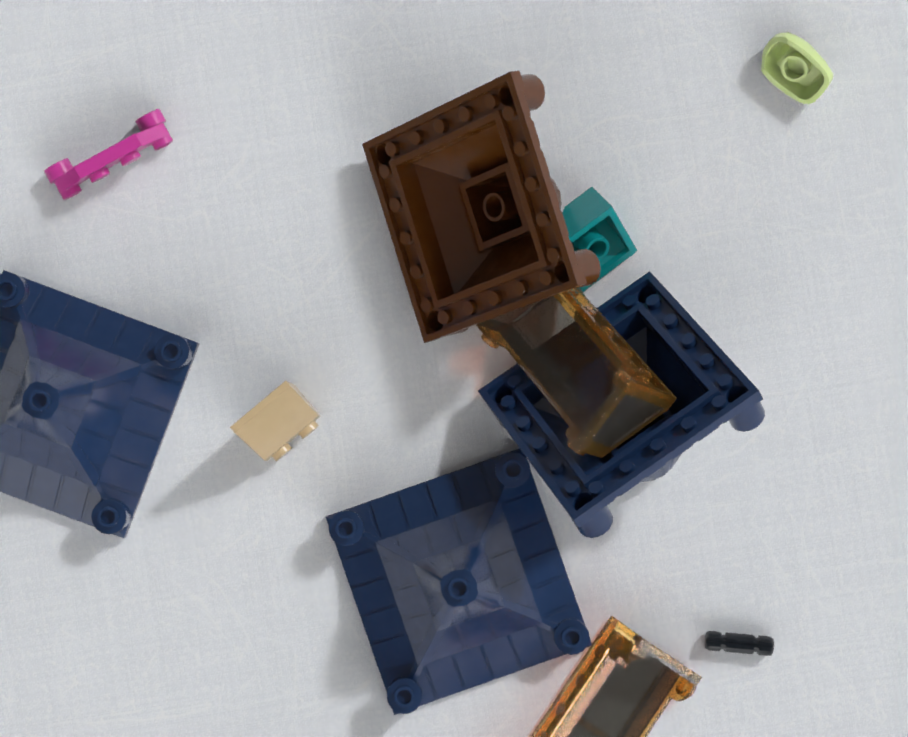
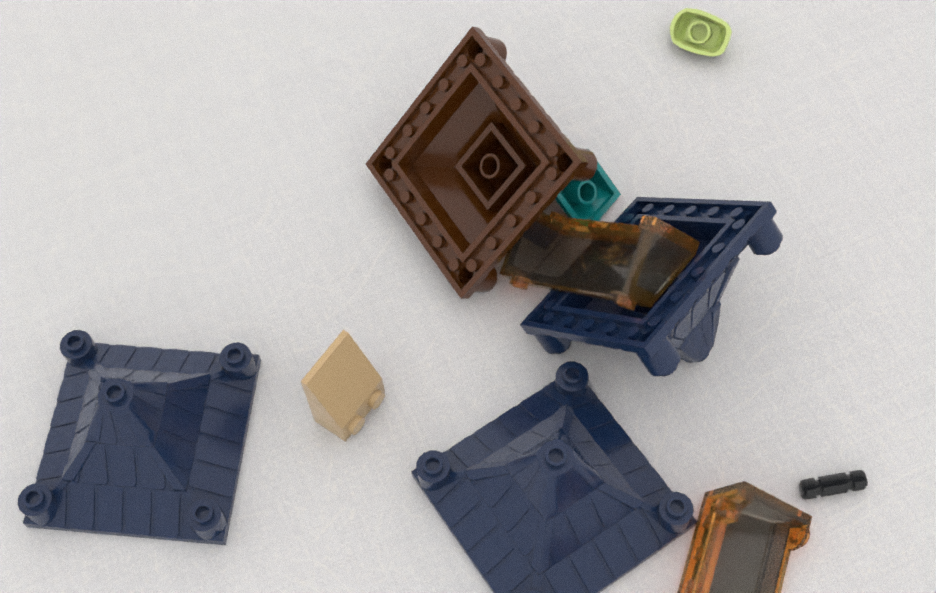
camera: 10 degrees left, 25 degrees down
(126, 151) = (143, 231): dark pink plate -> none

